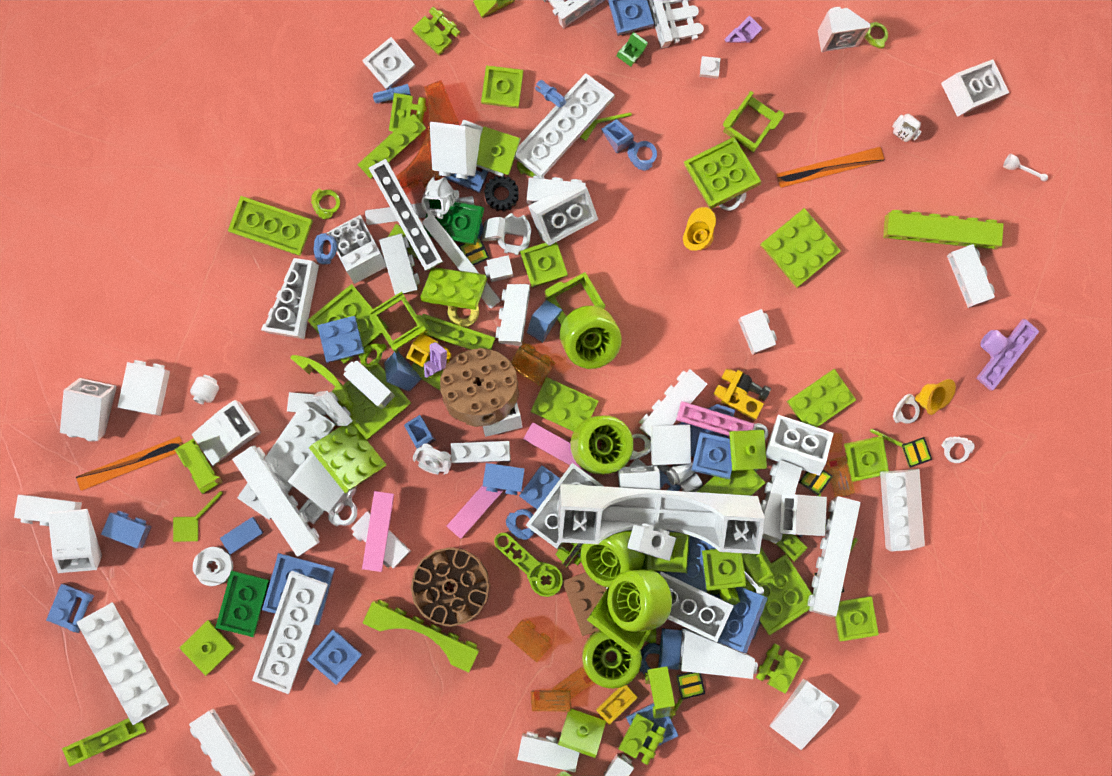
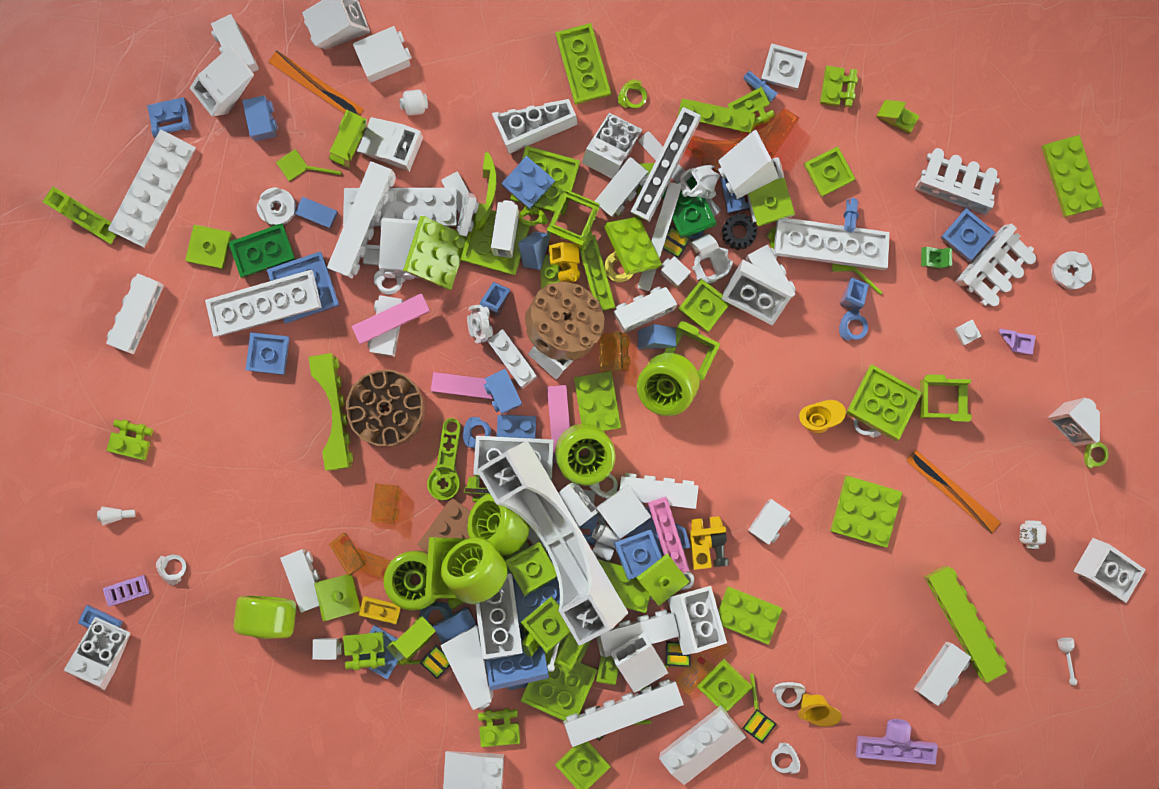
camera: 60 degrees right, 0 degrees up
(318, 248) = (590, 115): medium blue piece -> none
(437, 361) = (562, 272): lavender slope -> none
(642, 541) = (533, 558): white brick -> none

